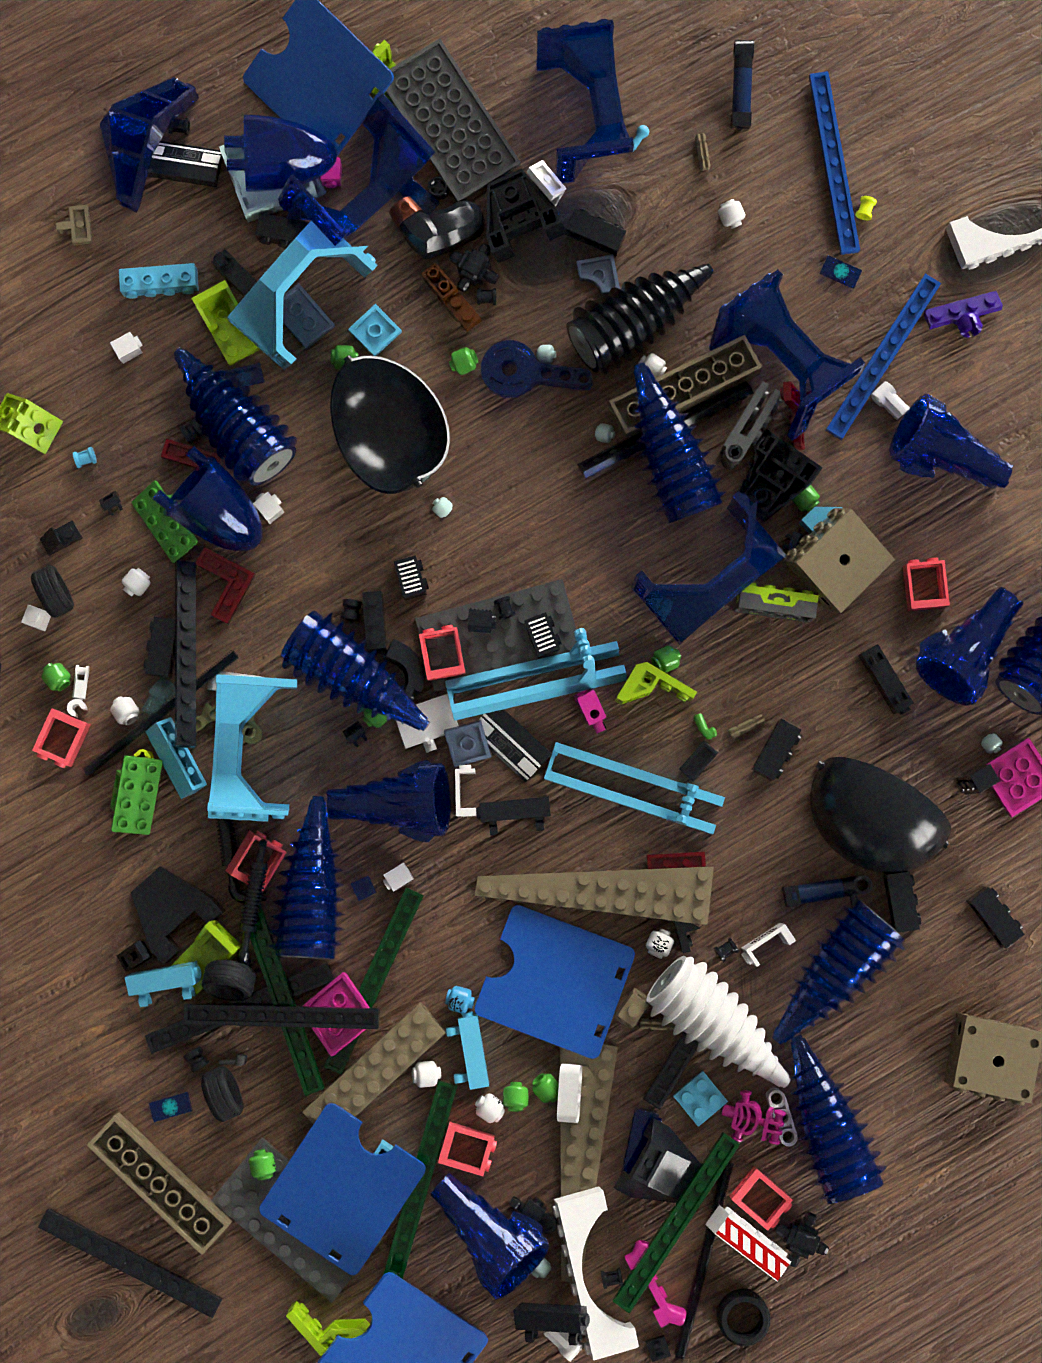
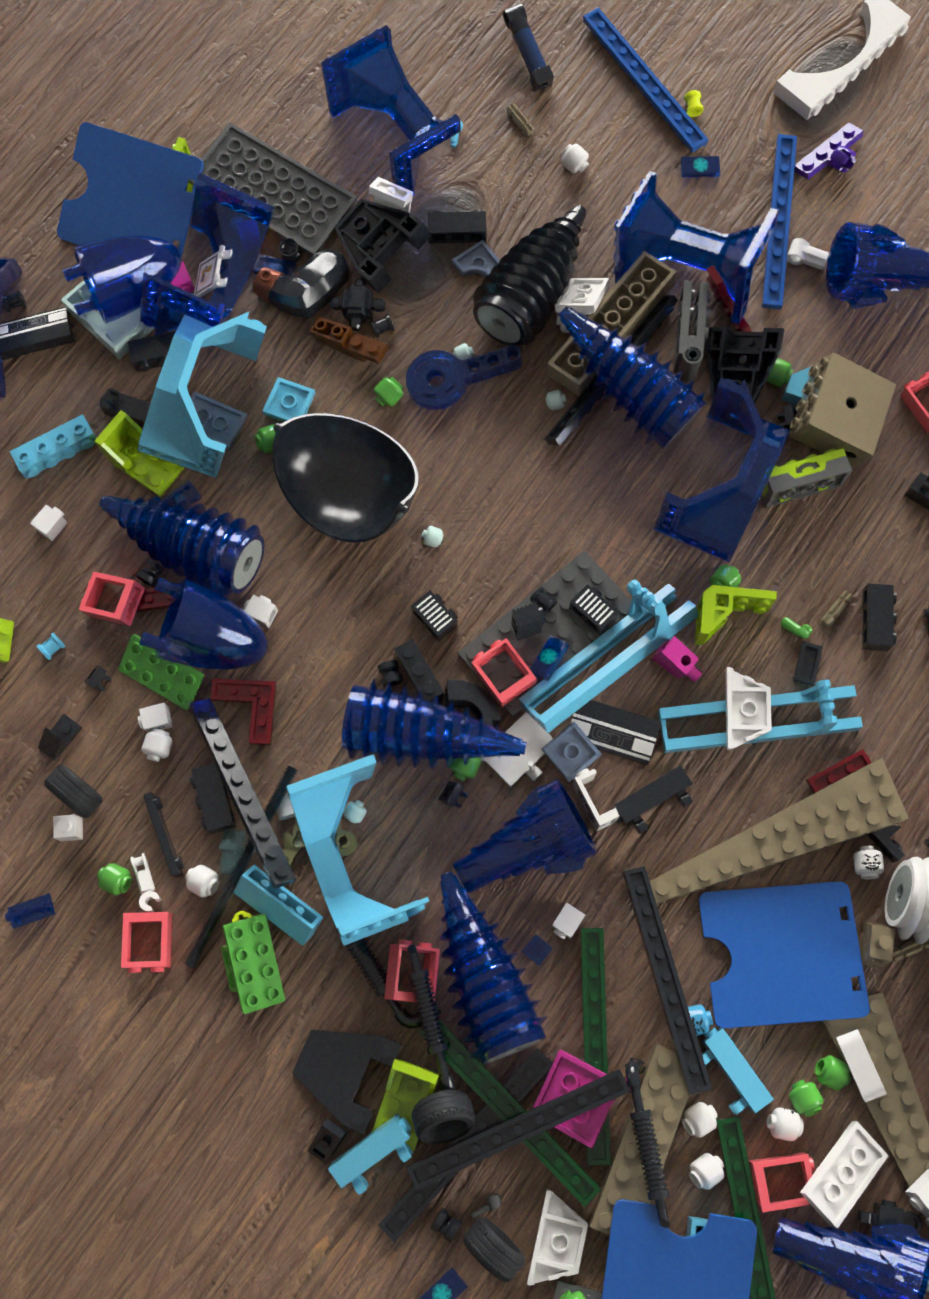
camera: 20 degrees left, 10 degrees down
(109, 687) = (154, 808): none -> black plate
(144, 559) = (155, 717): none -> white brick
(162, 451) = (124, 612): none -> coral window
(271, 710) = (354, 811): none -> light aqua piece
(274, 1111) = (557, 1242): none -> white wing
(357, 179) = (208, 273): none -> white flag
(373, 1069) = (647, 1142): none -> black piece
(411, 1113) = (706, 1171): none -> white head
(451, 958) = (667, 982): none -> black plate
(486, 658) = (549, 658): none -> clear blue tile
(514, 1165) = (844, 1174): none -> white plate
(625, 776) = (746, 709): none -> white wing
(670, 351) = (583, 294): none -> white plate

